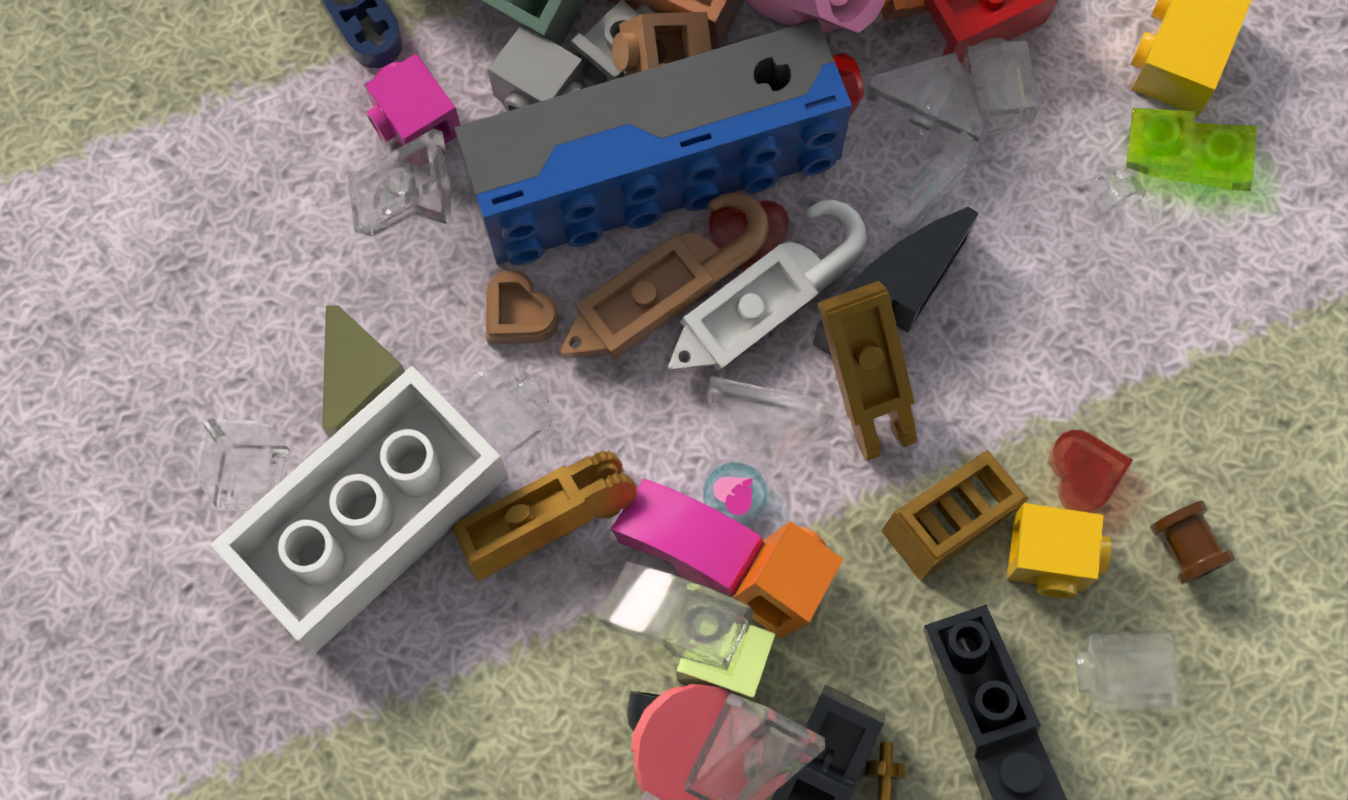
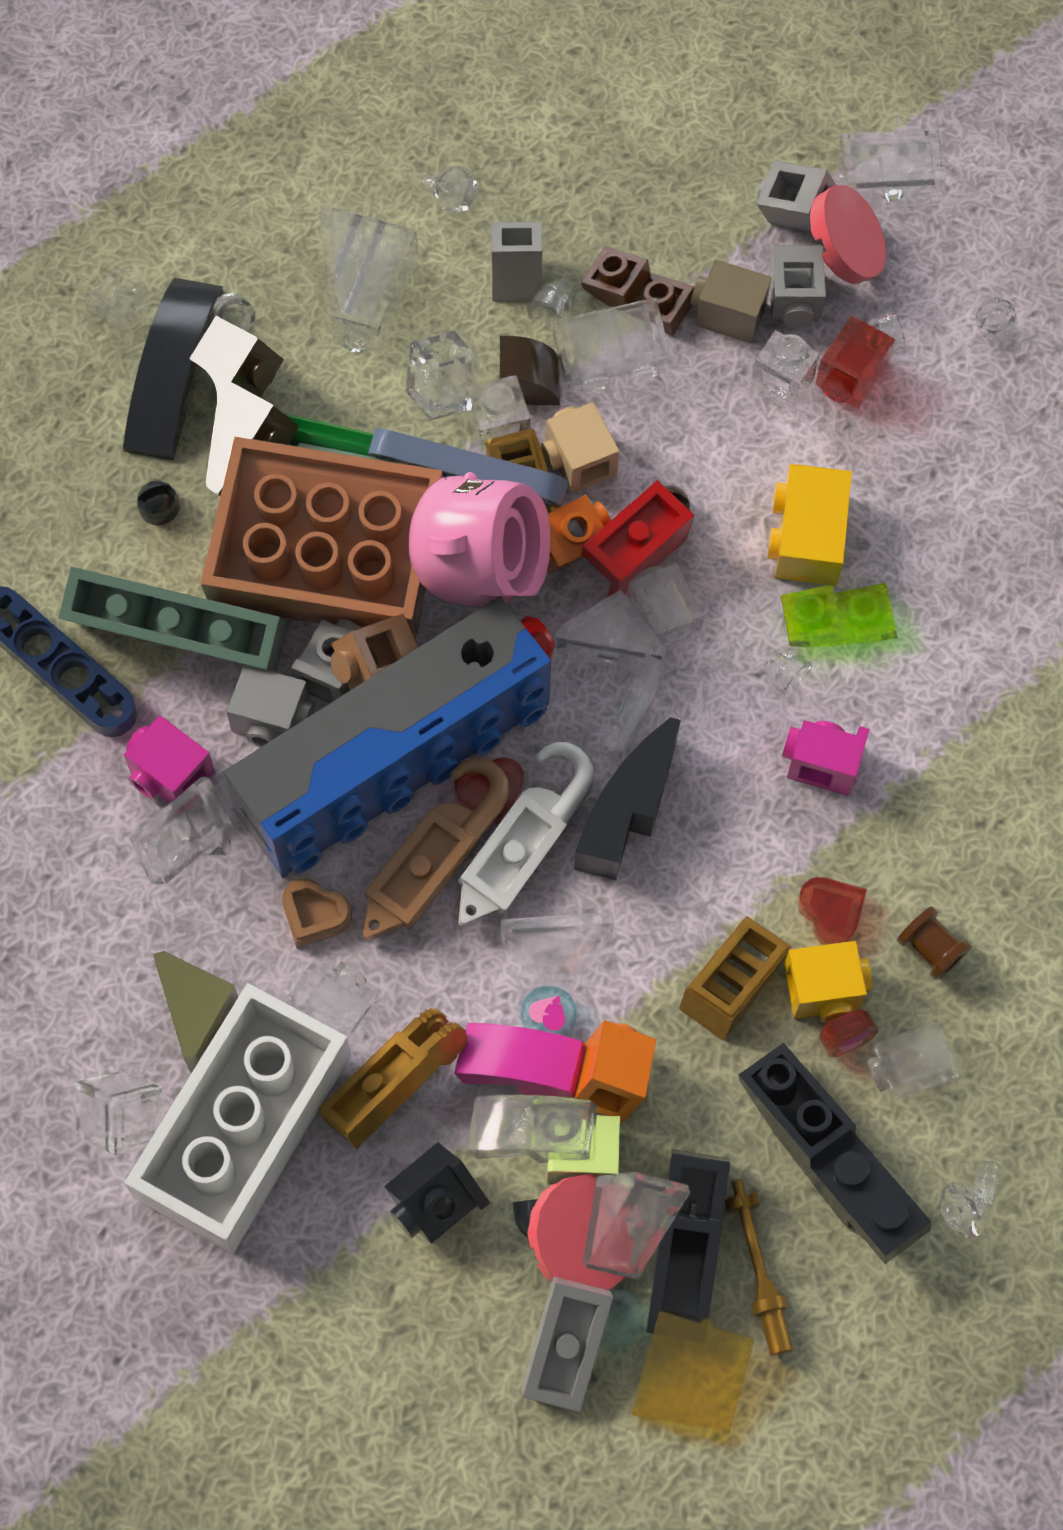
camera: 20 degrees left, 5 degrees down
(544, 657) = (434, 1194): none -> black brick
(869, 365) = (630, 873): pearl gold hinge -> none
(1063, 614) = (848, 1032): none -> clear red tile
(1130, 297) = (825, 755): none -> dark pink brick

